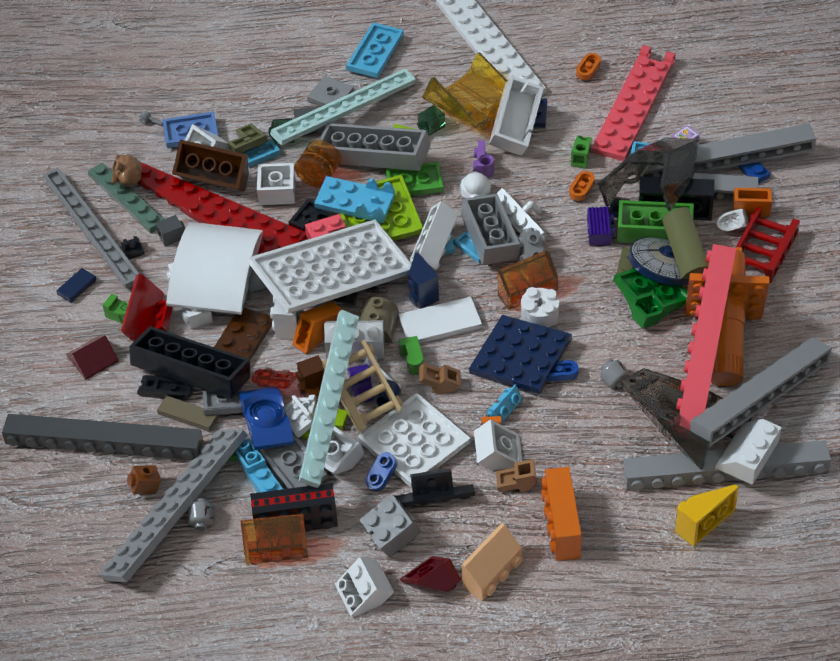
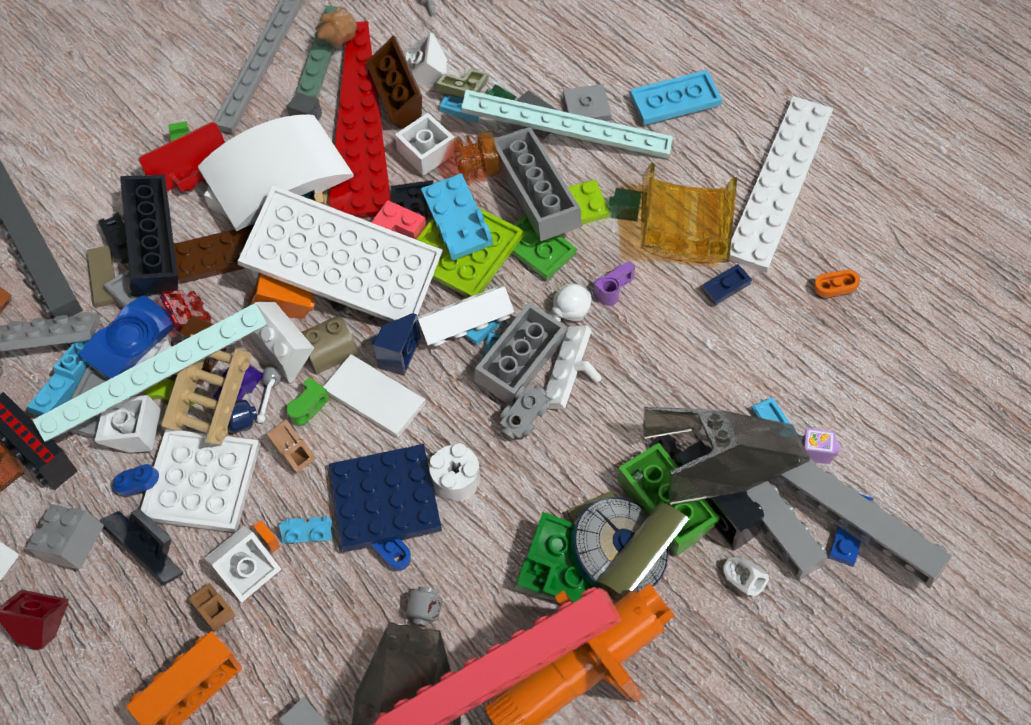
camera: 50 degrees right, 10 degrees up
(76, 285) = (189, 92): dark blue tile -> none
(93, 356) = (114, 160): dark red slope -> none
(132, 248) = (265, 98): black tile -> none
(178, 127) = (450, 37): medium blue plate -> none
(491, 563) = (77, 663): light nougat slope -> none
(516, 116) = (689, 268): white piece -> none
(534, 272) = (486, 435): clear orange slope -> none
(579, 189) = (662, 393): orange plate -> none
(581, 151) = (710, 358): bright green leg -> none
(599, 225) = (619, 447): dark purple brick -> none
(632, 105) = (827, 360): coral hinge -> none
(751, 199) = (787, 575): orange piece -> none
(783, 243) = (734, 656): red fence -> none

